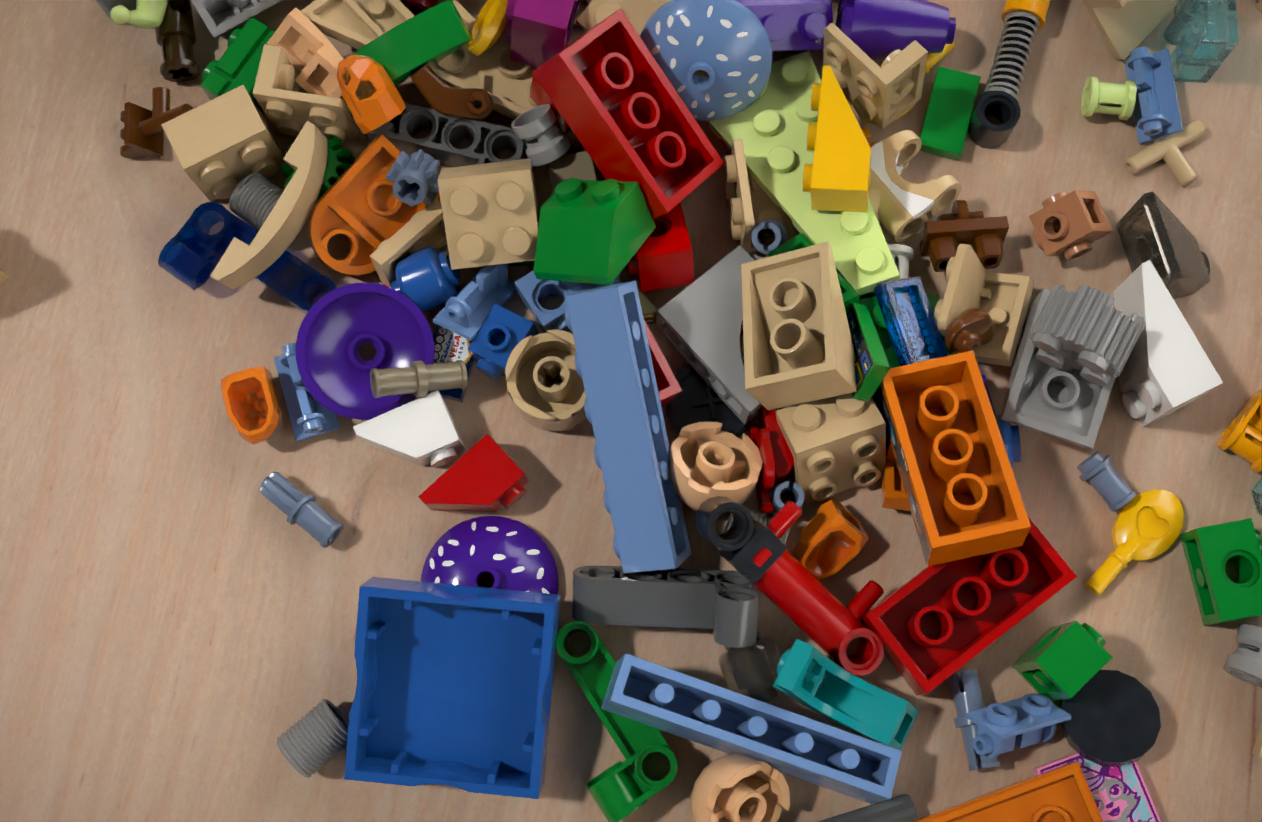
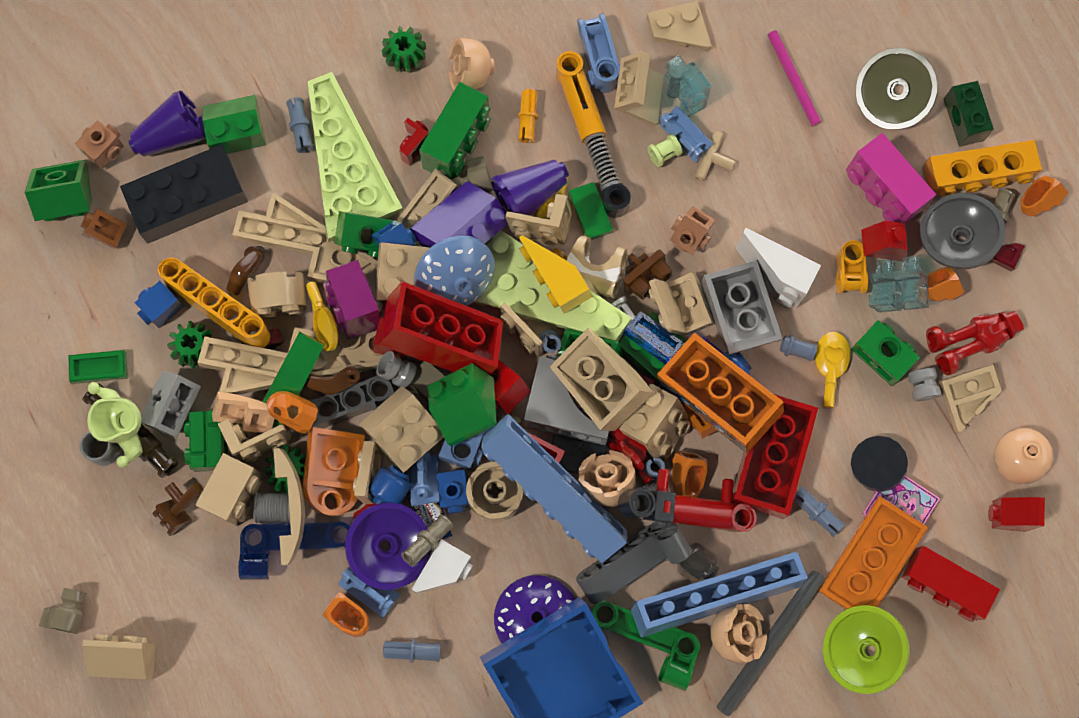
camera: 45 degrees left, 0 degrees up
(415, 178) = (348, 437): sand blue gear -> none
(478, 481) = (494, 570): red slope -> none
(843, 697) = (751, 545): teal arch -> none
(869, 355) = (646, 369): green tile -> none
(969, 328) = (683, 322): reddish brown arm -> none
(1015, 722) = (838, 498): medium blue hinge -> none
(1063, 660) = (839, 452): green brick -> none
(1085, 333) = (741, 287): light grey brick -> none
(1157, 235) = (745, 212): clear smoke slope -> none

